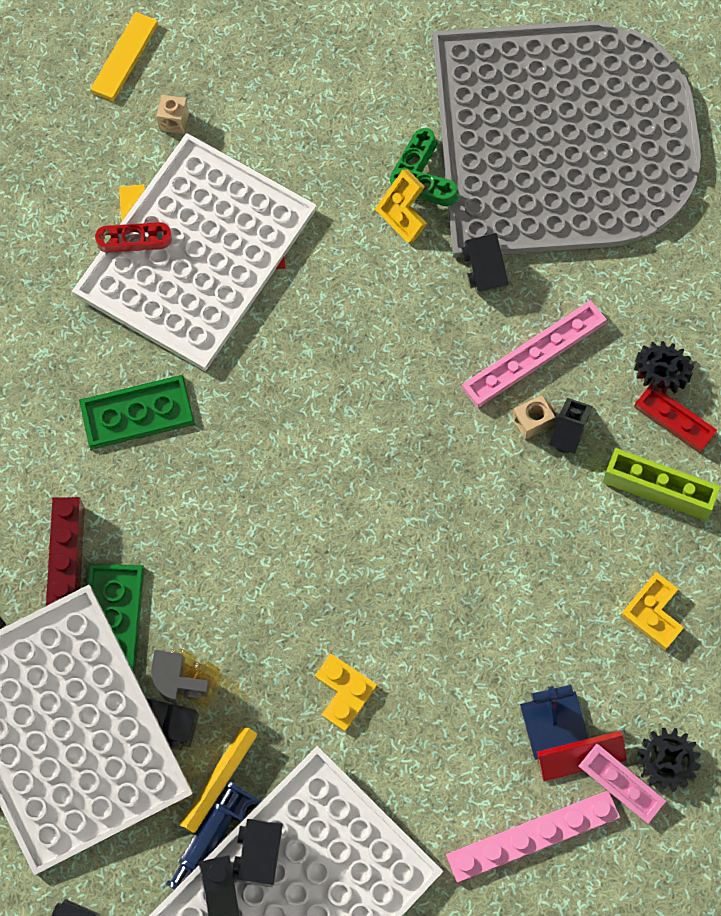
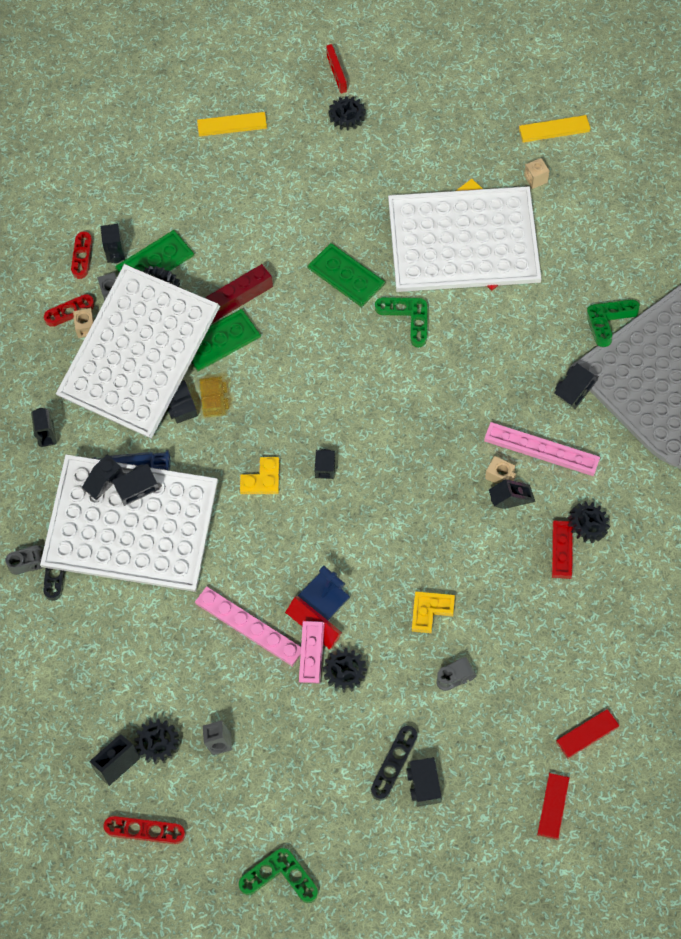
camera: 55 degrees right, 5 degrees down
(142, 244) = (444, 210): red beam -> none
(168, 679) = (201, 382): dark grey brick -> none
(218, 780) = (167, 446): yellow tile -> none
(245, 371) = (410, 310): none -> green beam
(381, 605) = (324, 464): none -> black brick
(397, 209) = (574, 319): yellow plate -> none
(661, 484) = (510, 564): lime brick -> none

